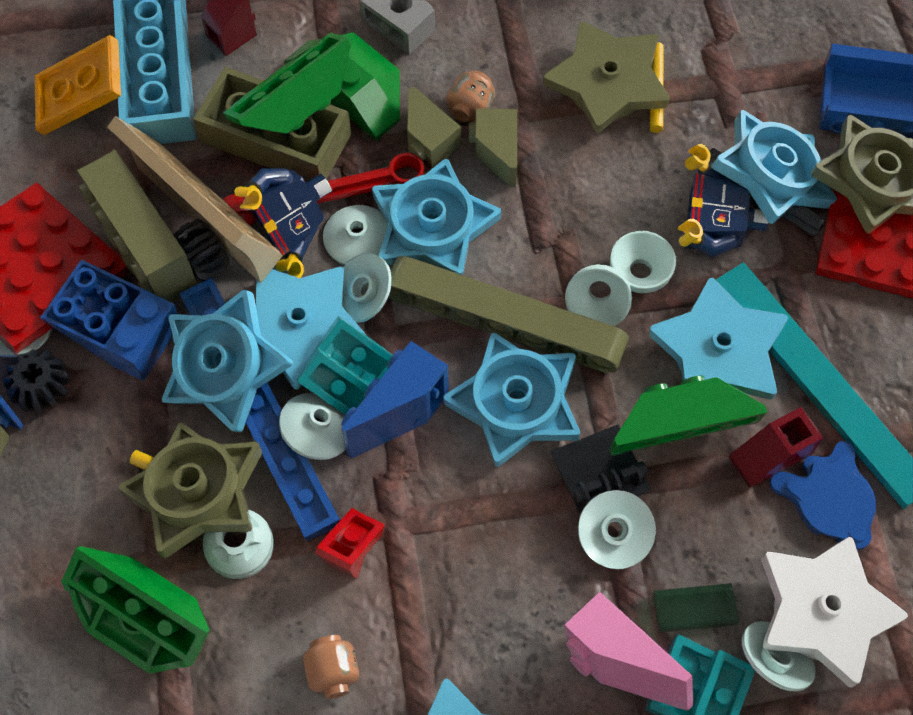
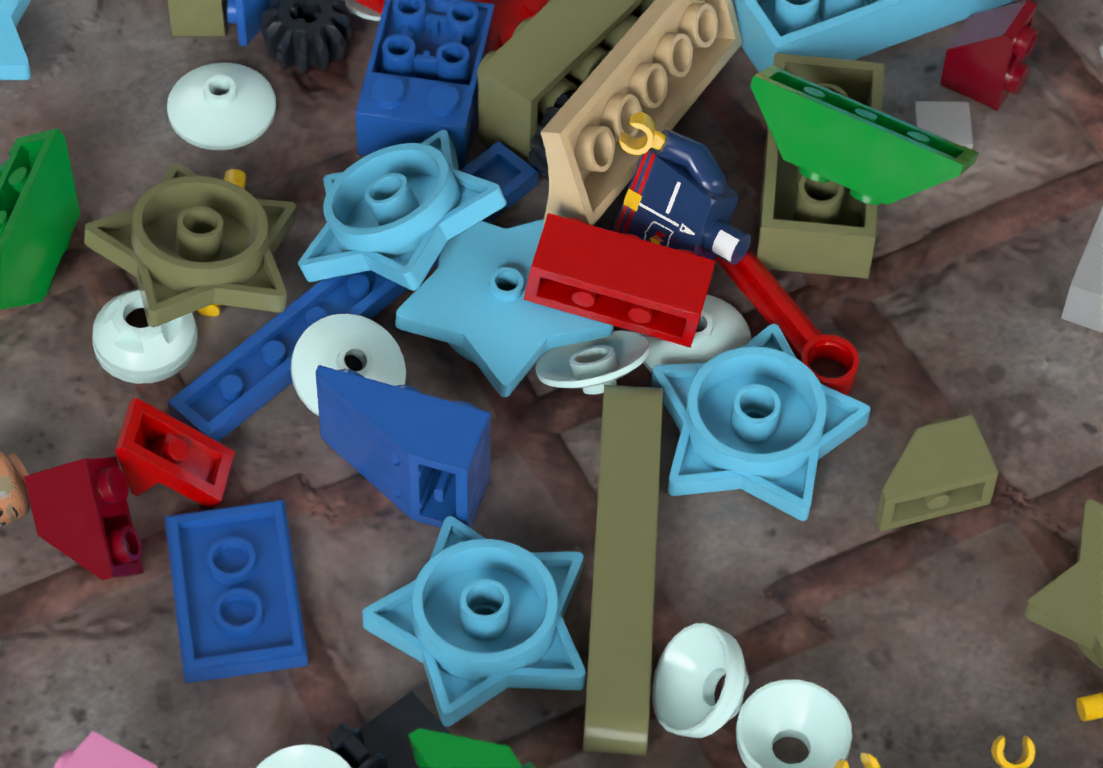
camera: 70 degrees right, 10 degrees down
(76, 465) = (221, 106): none -> light aqua dish
(261, 61) = (945, 119): none -> light grey tile
(323, 251) = (619, 280): none -> red brick
(344, 366) = (452, 359): teal slope -> none
(368, 87) = (964, 252): green wedge -> none
(377, 607) = (87, 515): none -> dark red slope
(430, 130) = (913, 370): olive slope -> none
(448, 533) = (235, 591): none -> blue tile
(470, 92) = (1006, 409): nougat head -> none

